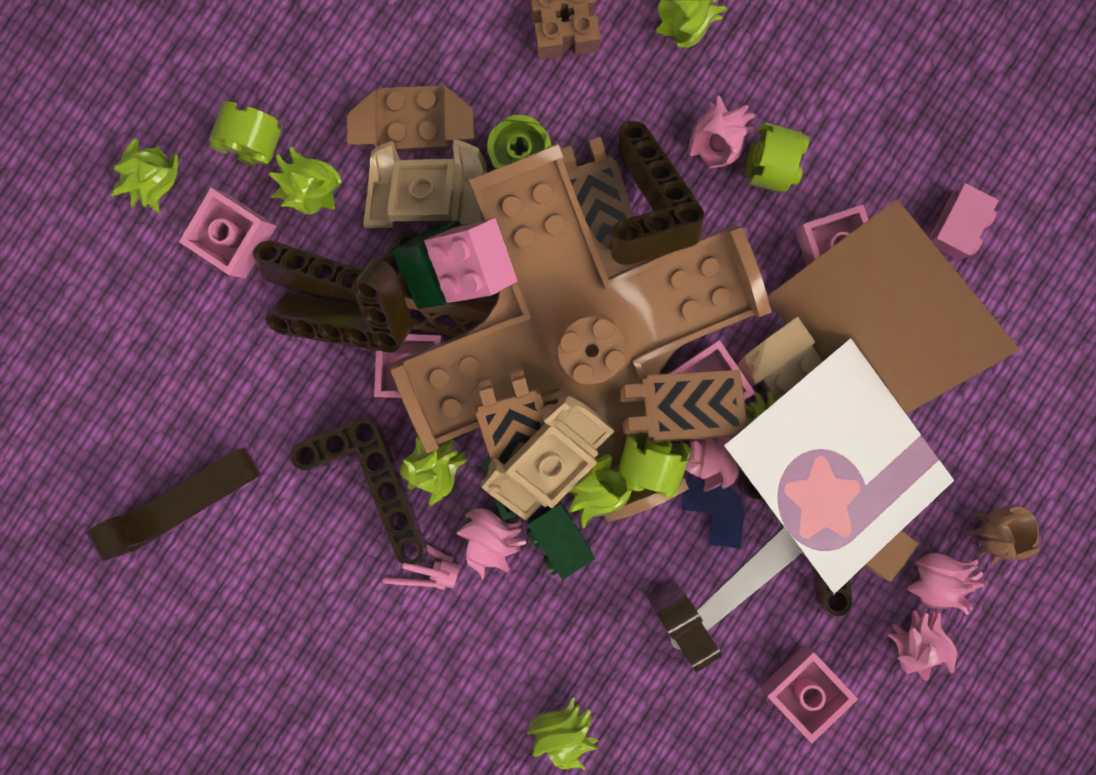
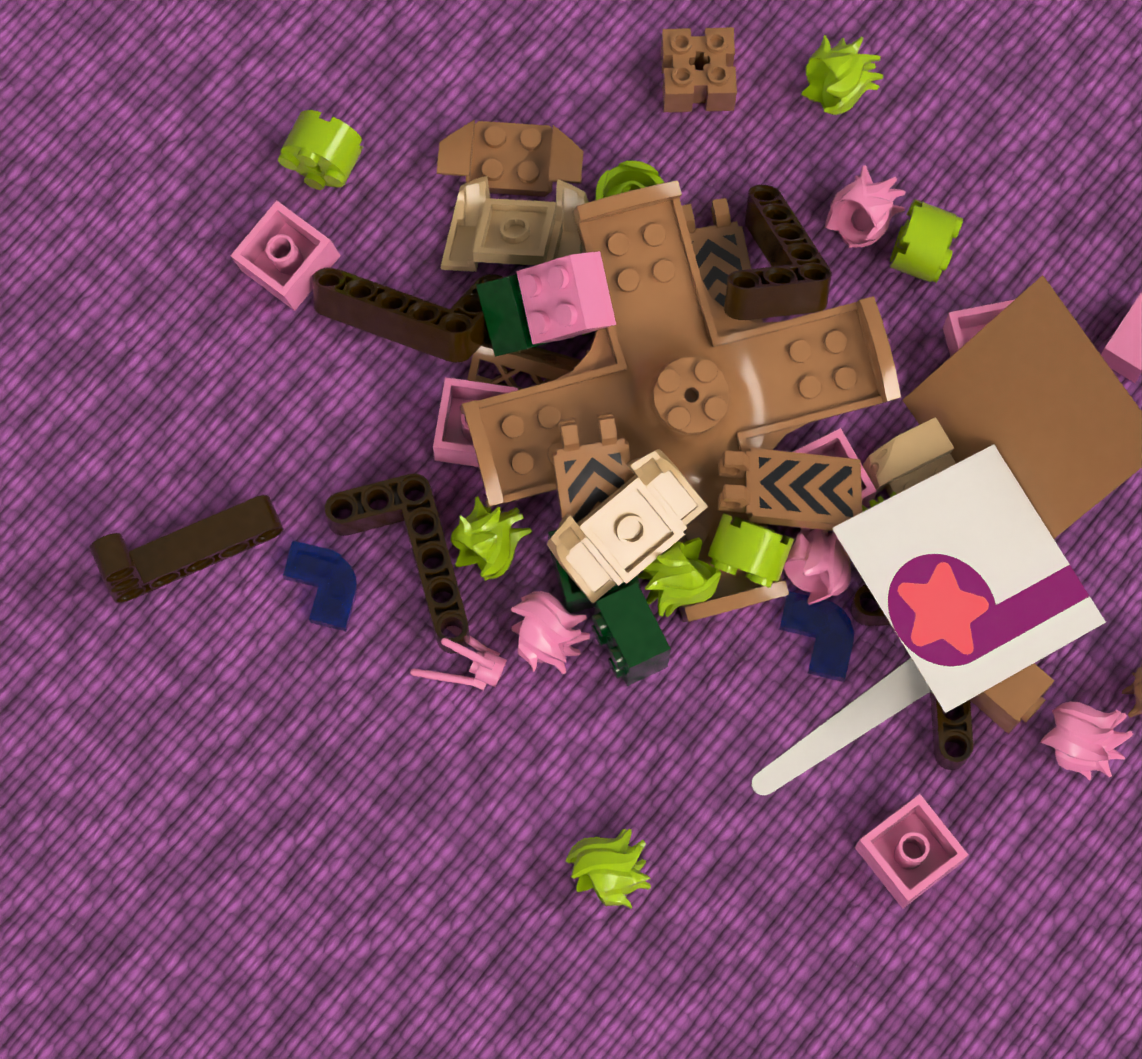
camera: 10 degrees right, 15 degrees down
(145, 174) = (199, 183): lime hair -> none
(306, 183) = (382, 210): lime hair -> none
(308, 511) = (331, 575): none -> clear blue plate
(375, 323) = (446, 365): dark brown beam -> none
(684, 625) = (754, 725): dark brown beam -> none
(924, 645) = (1056, 812): bright pink hair -> none

